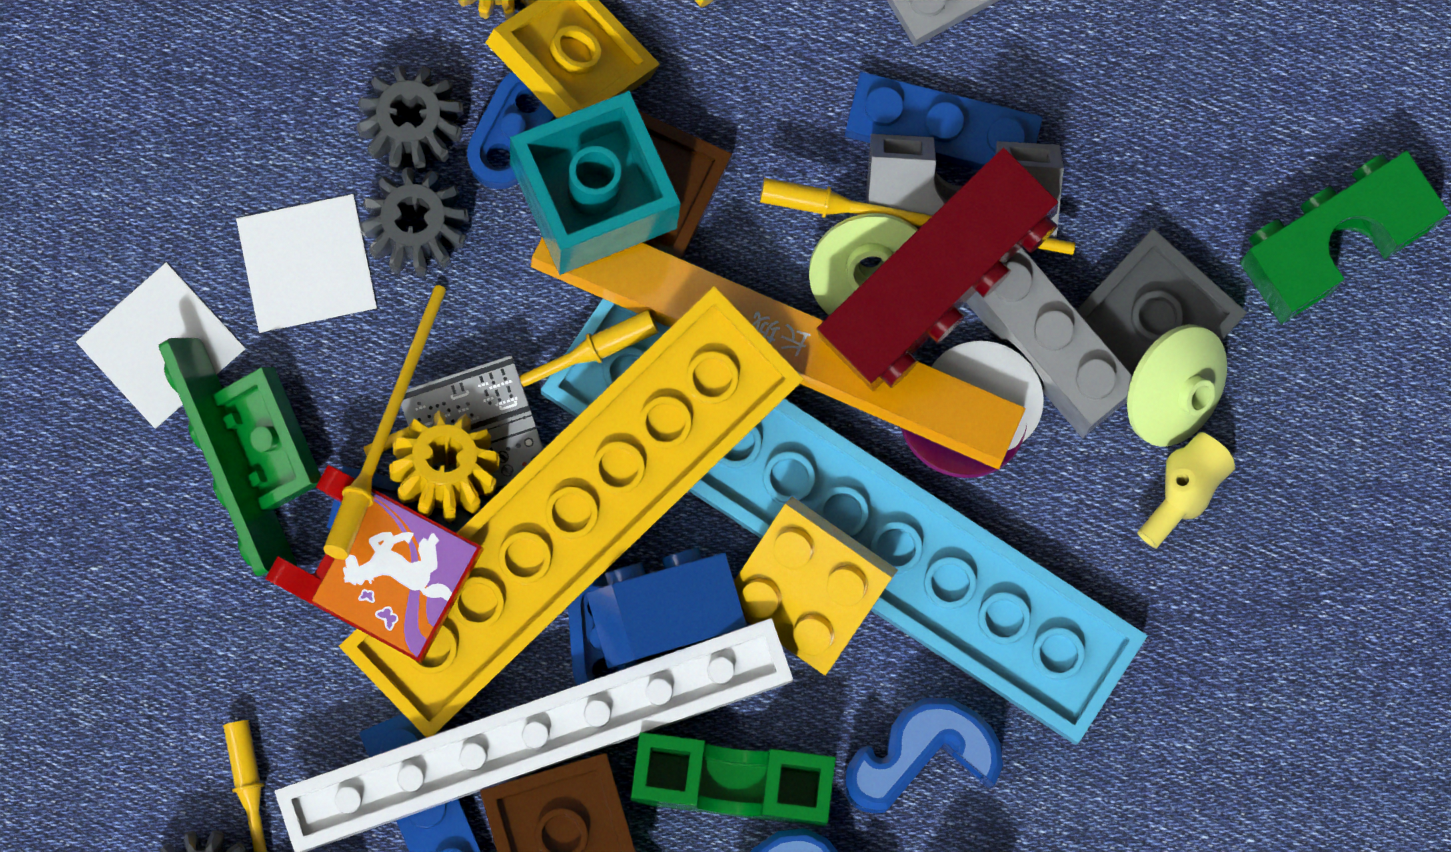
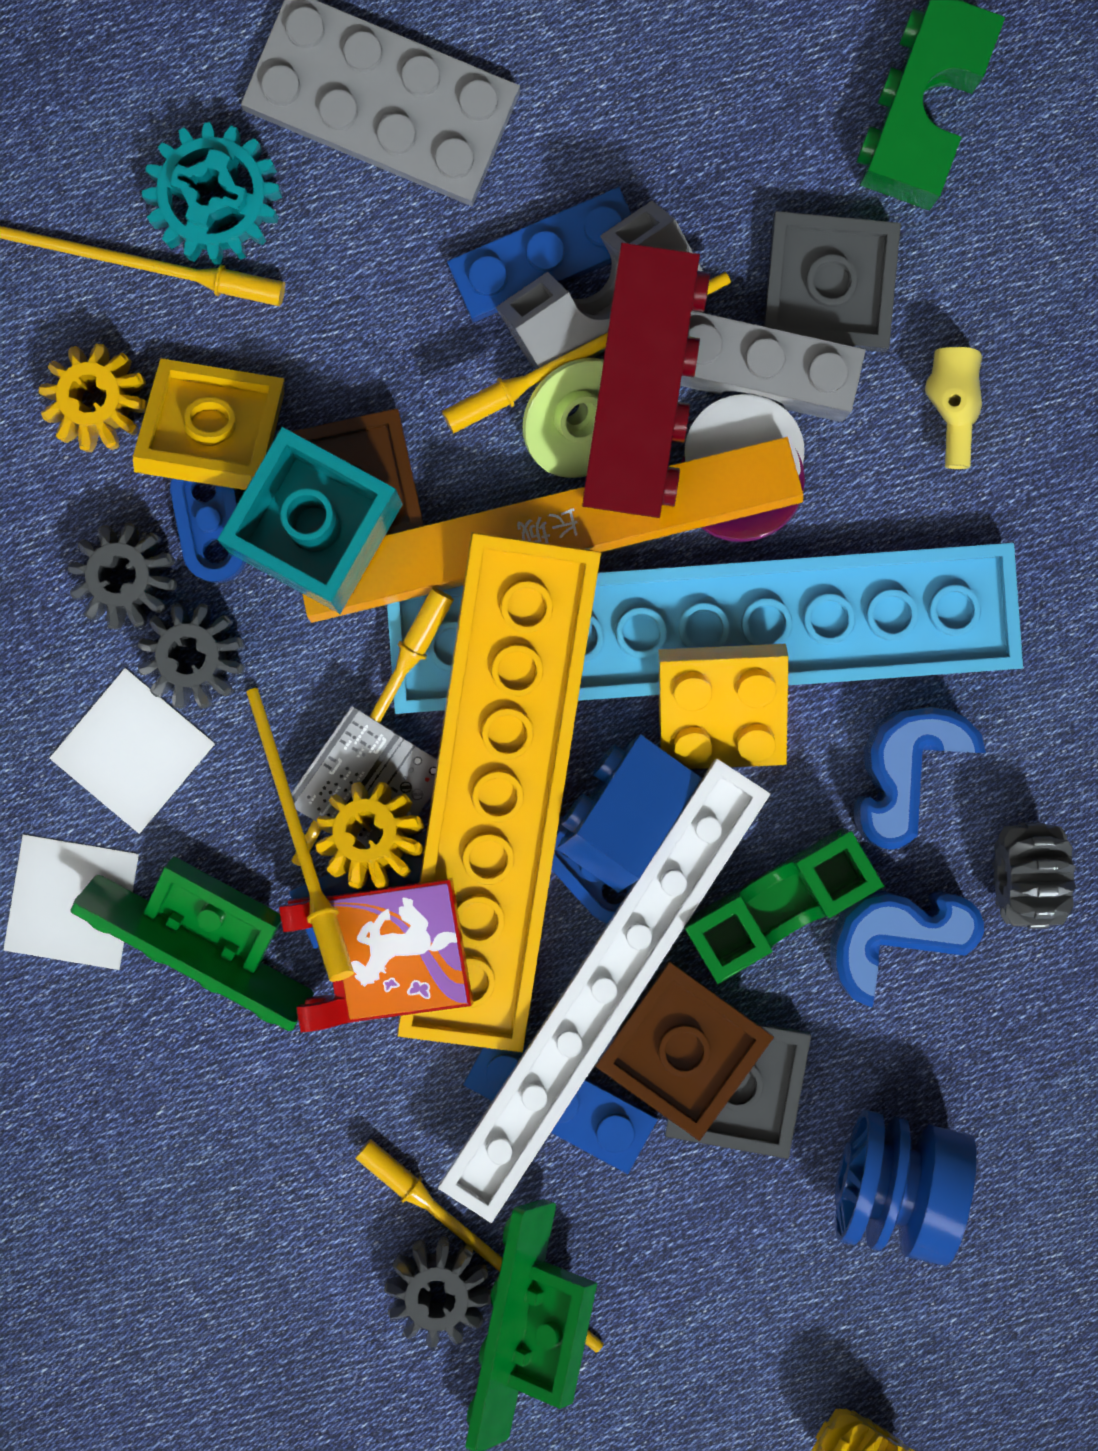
camera: 35 degrees left, 10 degrees up
(1177, 385) = (891, 325): yellowish green dish -> none

